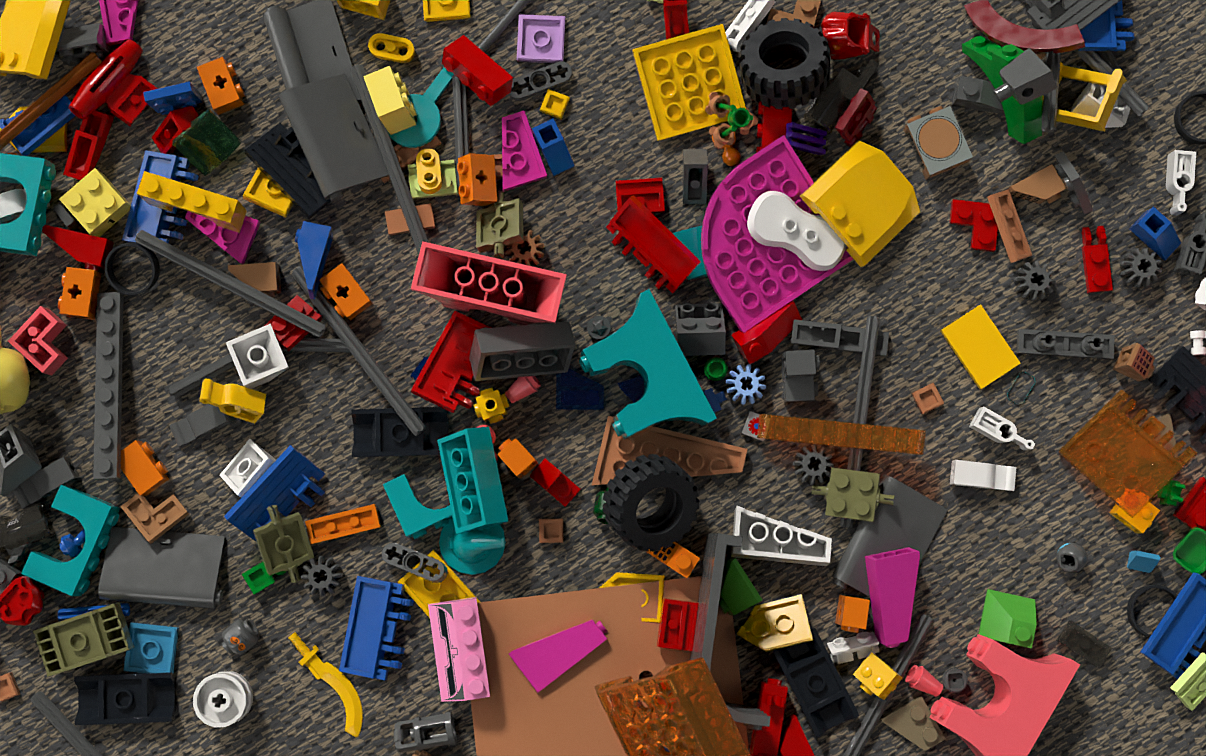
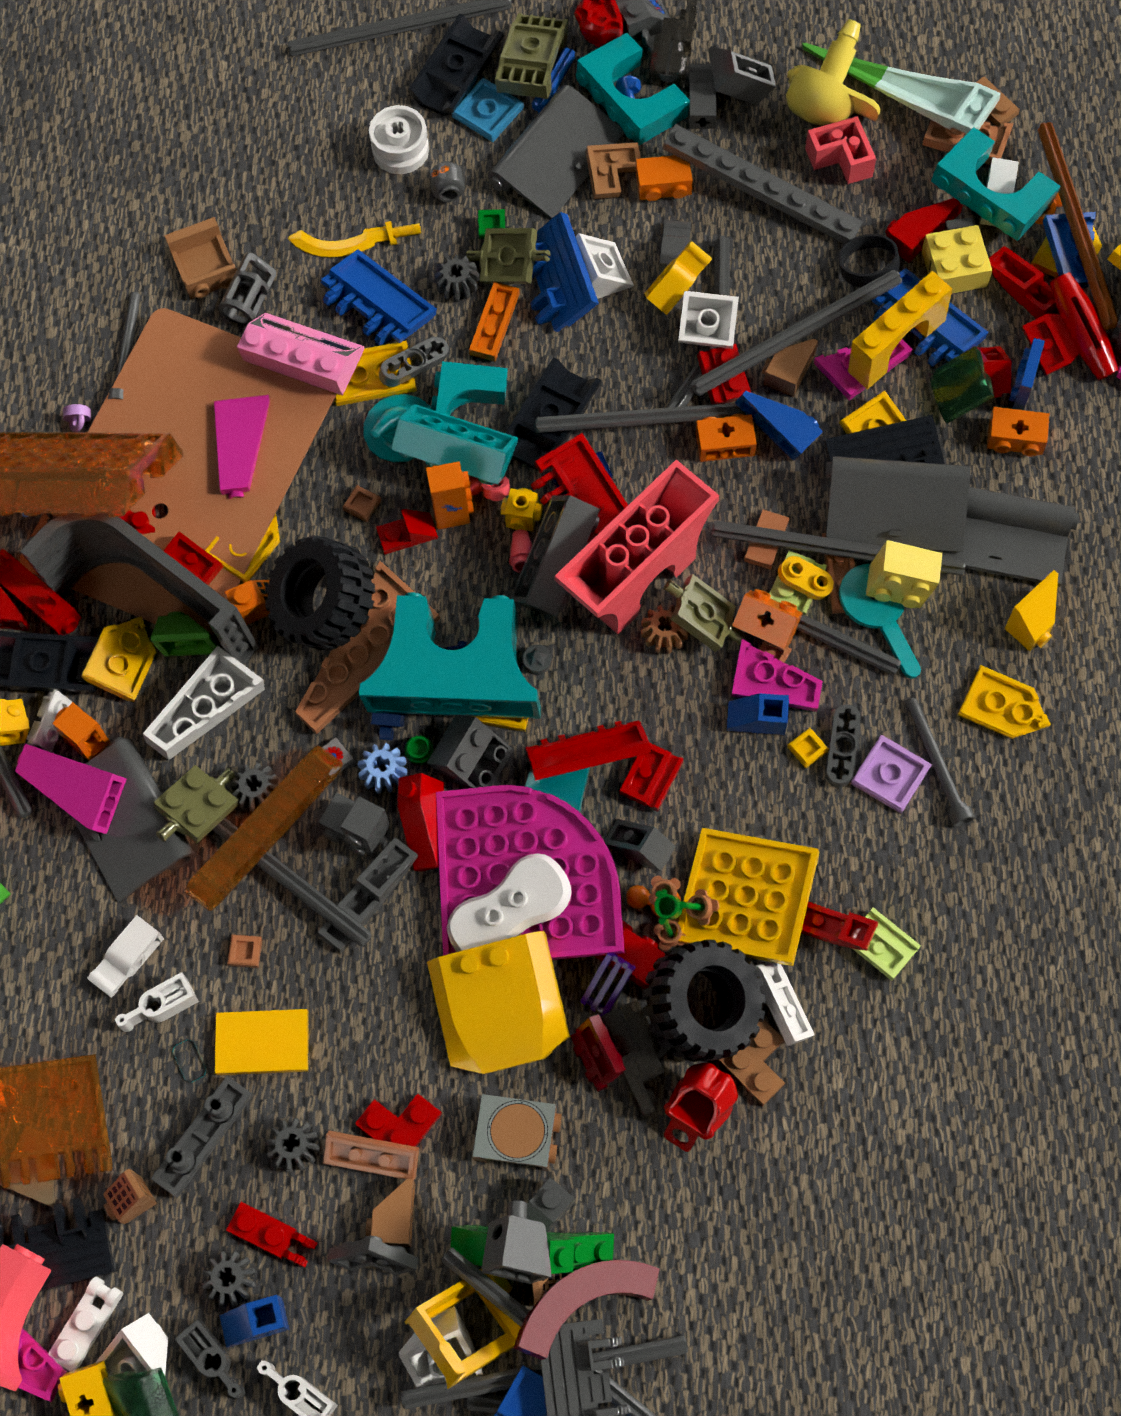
camera: 120 degrees right, 15 degrees down
(81, 305) = (871, 205): orange brick -> none
(392, 48) = (964, 616): yellow plate -> none
(477, 70) = (888, 679): red brick -> none
(578, 392) = (469, 606): clear blue wing -> none

